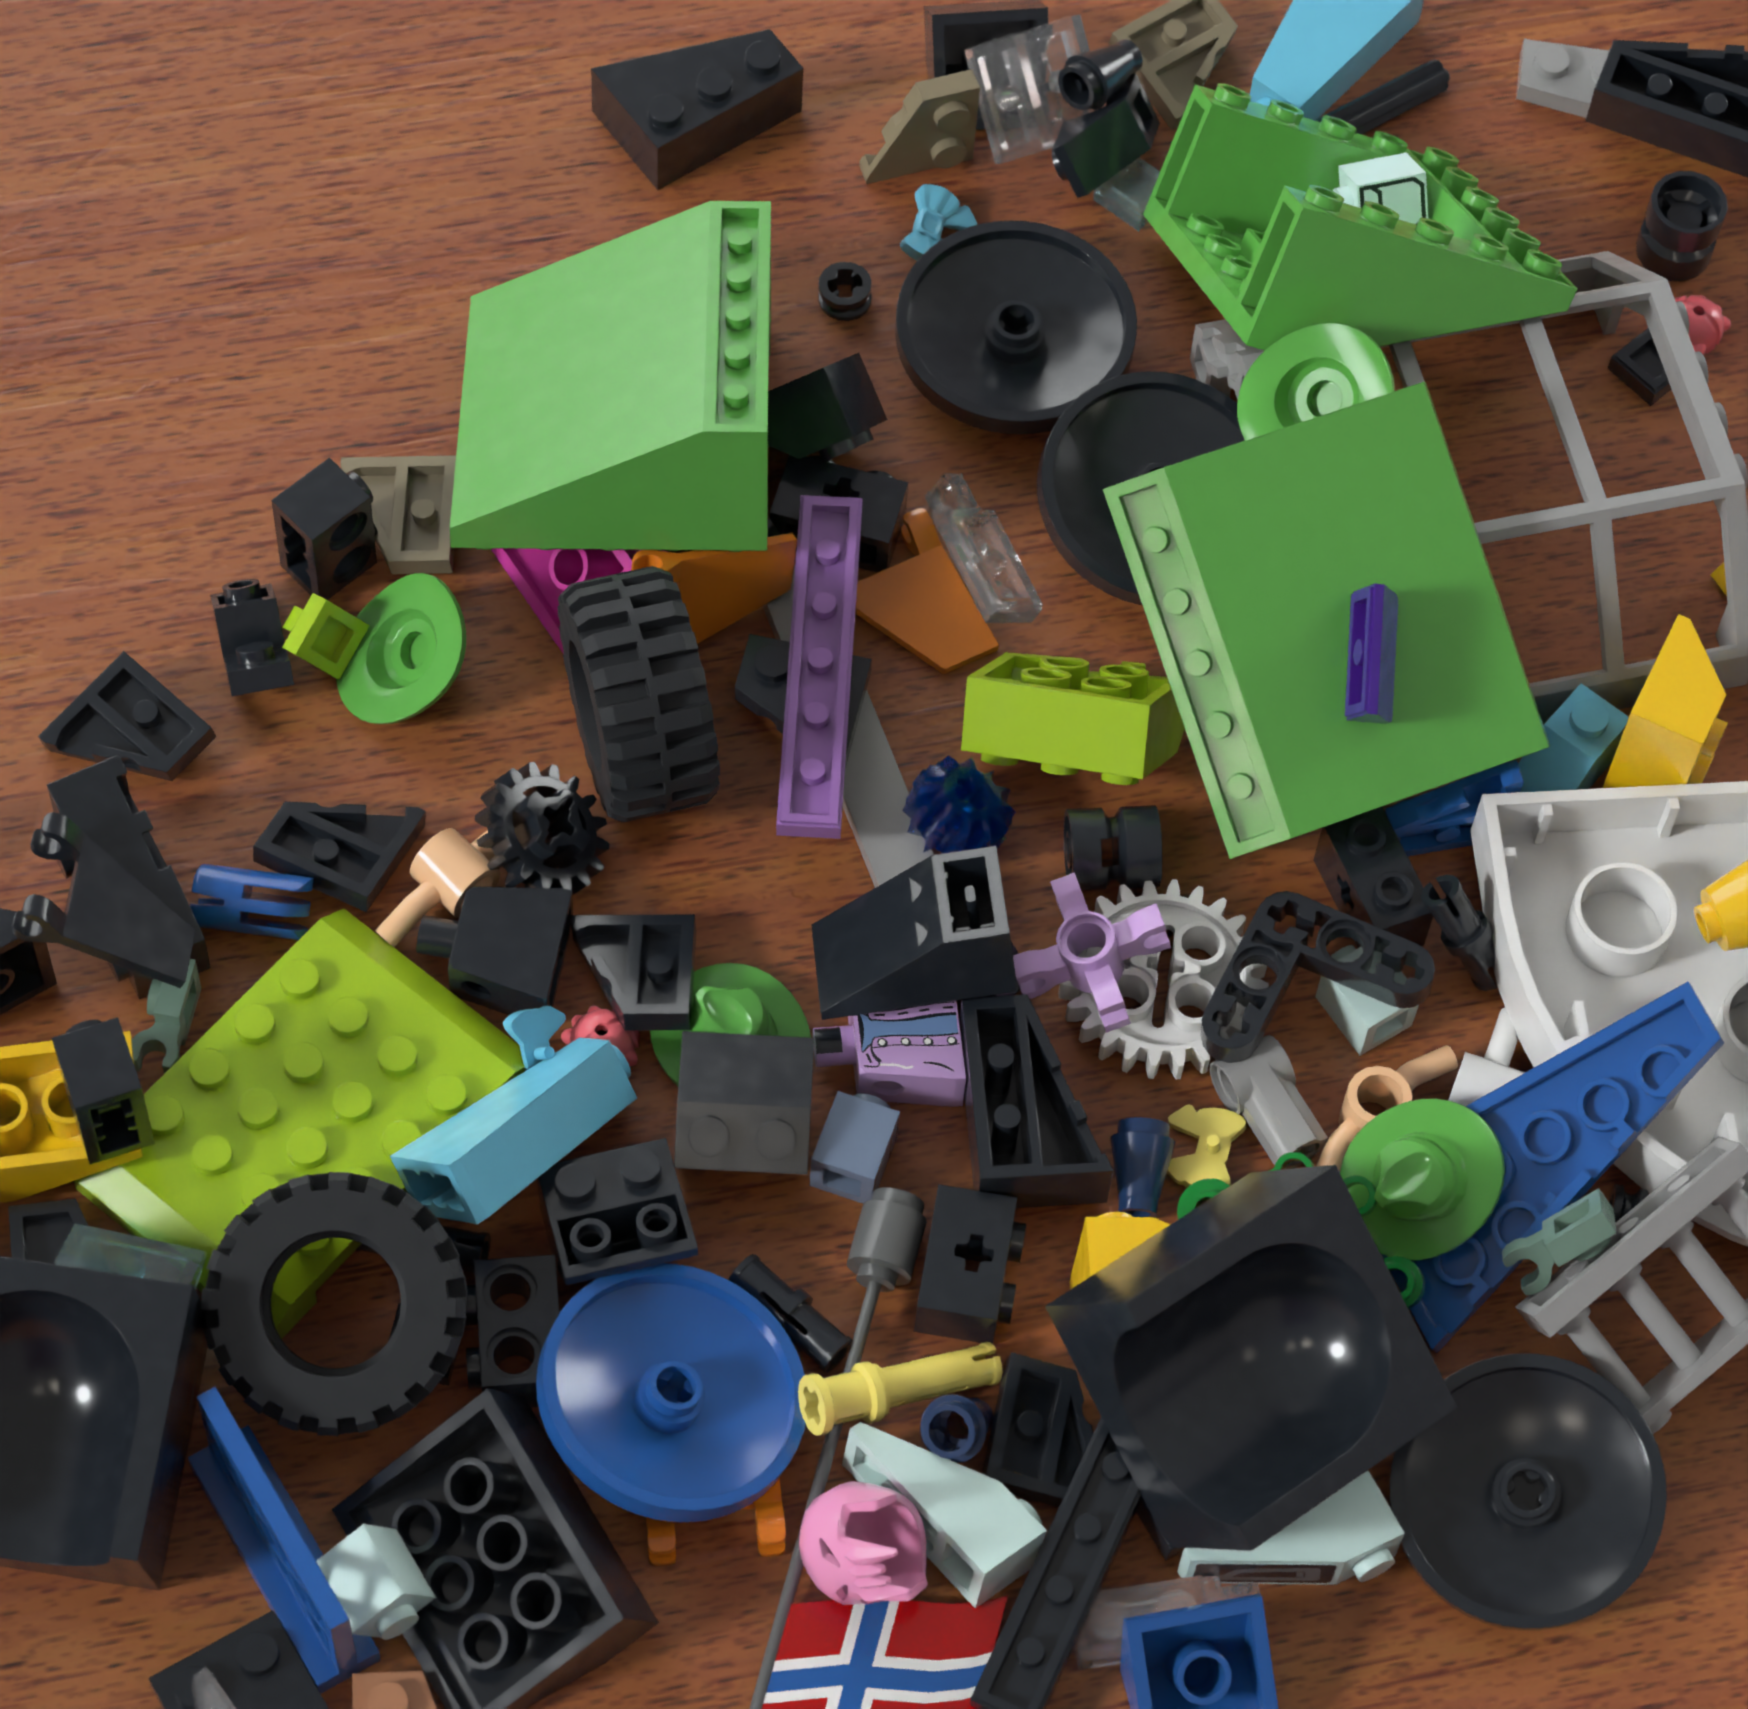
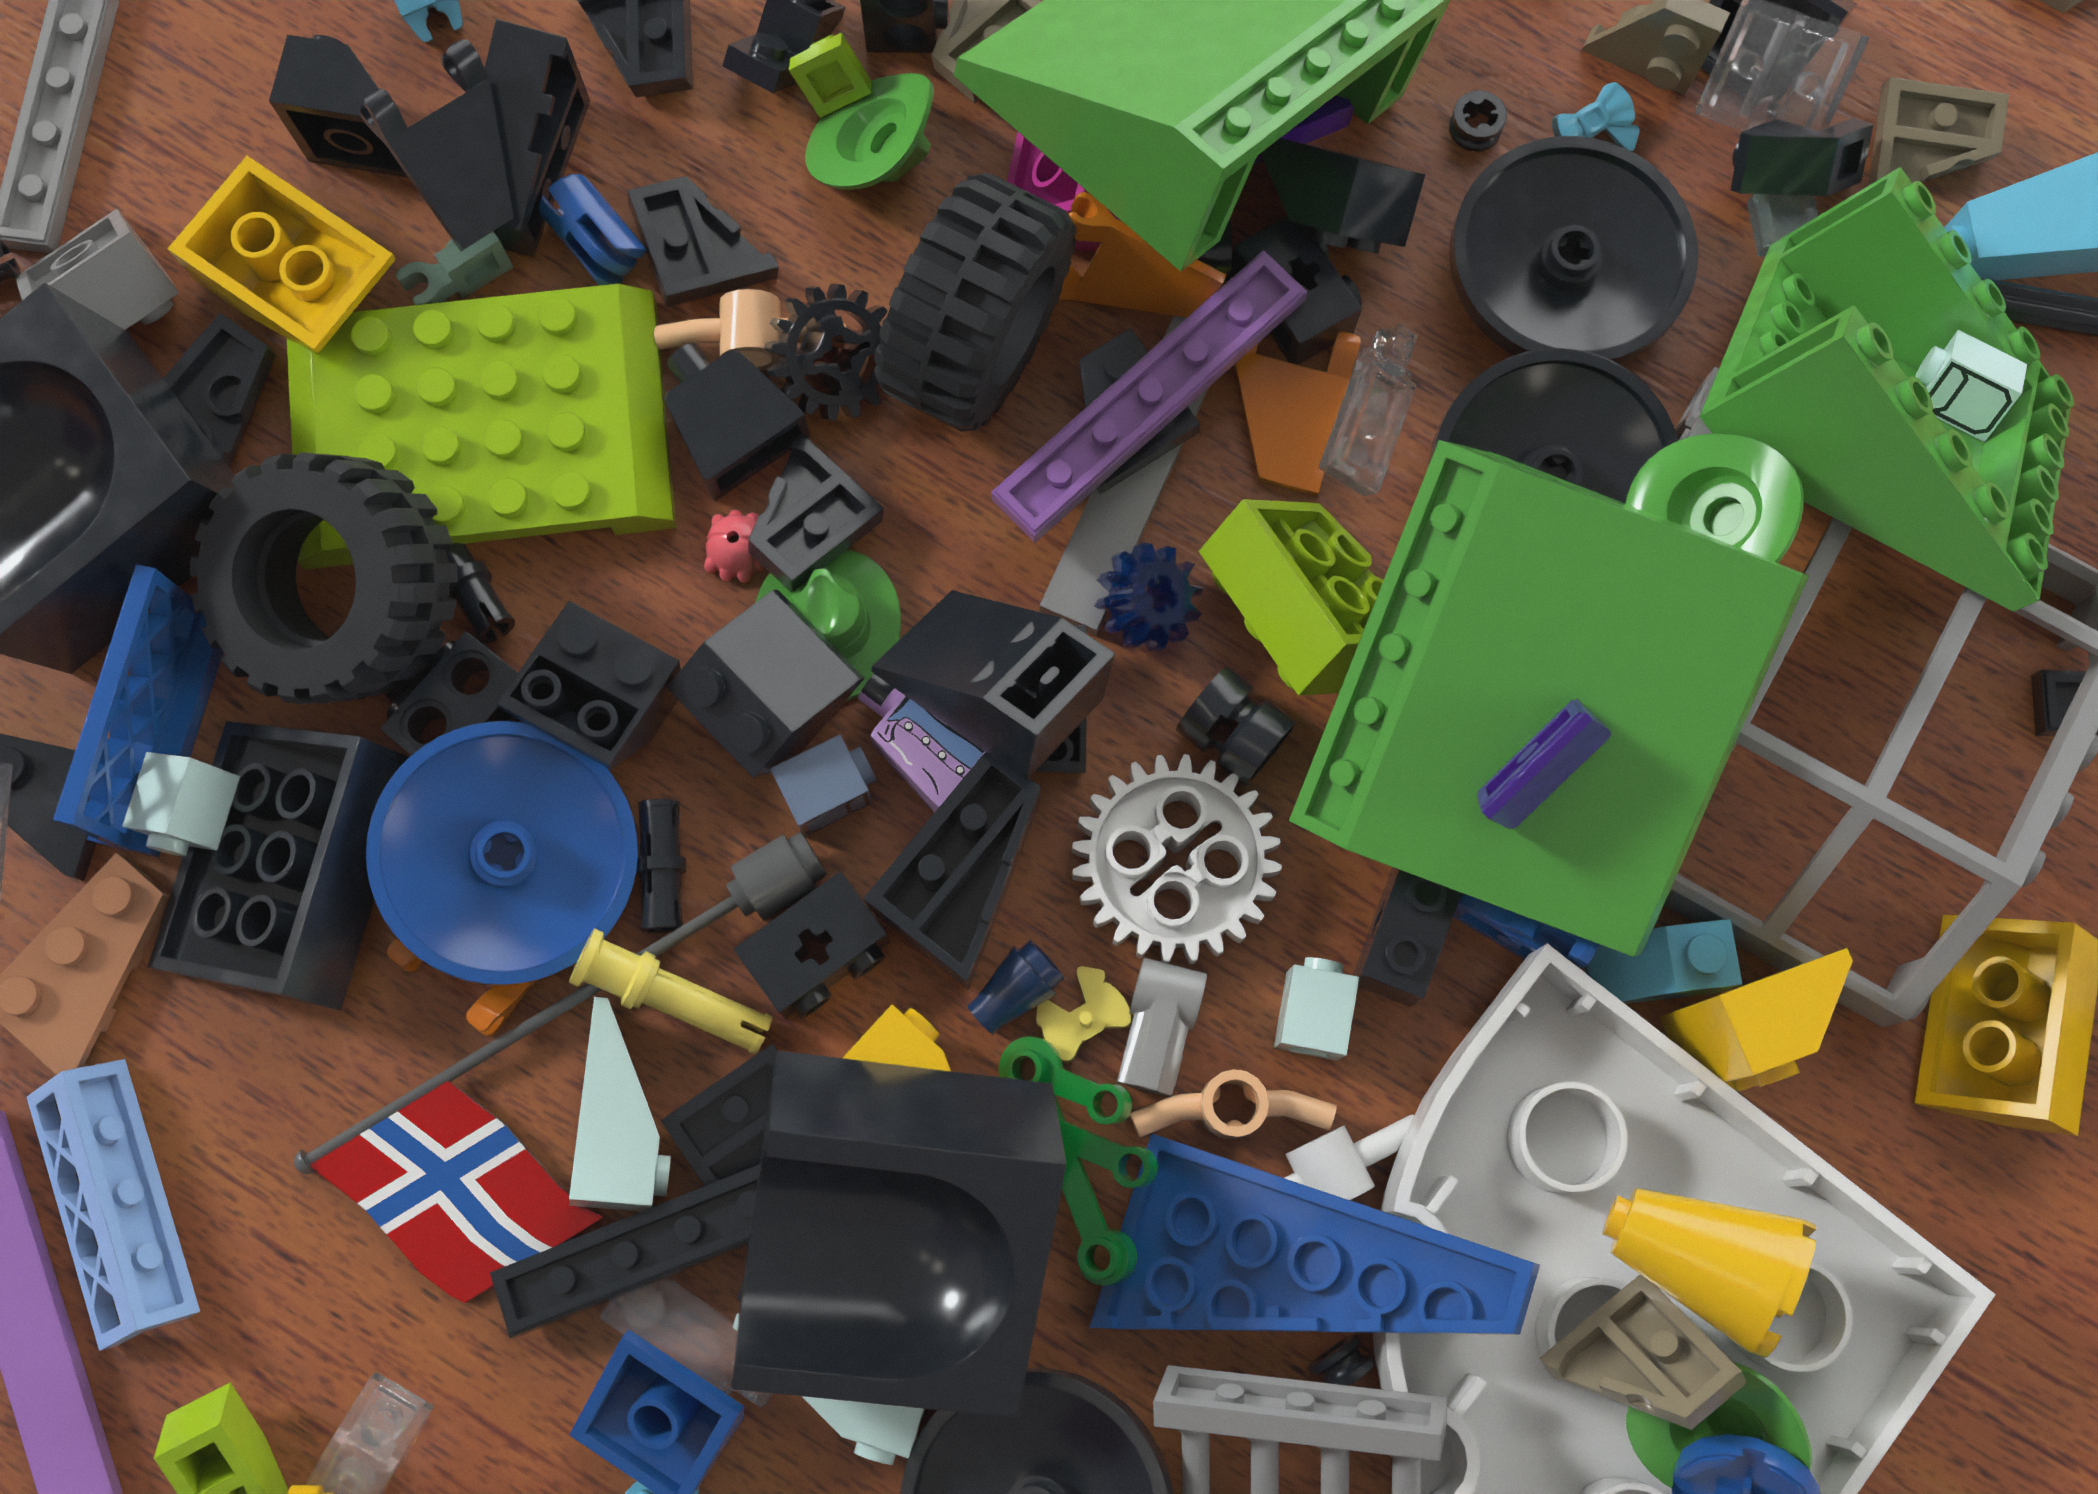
camera: 45 degrees right, 15 degrees up
(103, 1089) = (295, 277): black brick -> none
(130, 1255) = (236, 417): clear light blue slope -> none
(516, 1132) = (581, 563): medium azure slope -> none
(532, 1032) = (664, 531): medium azure piece -> none
(864, 1544) = (519, 1091): bright pink helmet -> none
(944, 1431) = (674, 1065): dark blue cone -> none
(1096, 75) = (1838, 99): black cone -> none
(1137, 935) = (1134, 770): lavender pin -> none
(1290, 951) = (1273, 930): black beam -> none
(1432, 1176) = (1208, 1202): bright green hat -> none
(1464, 929) = (1434, 1031): black pin -> none
(1571, 1233) = (1250, 1361): sand green plate -> none

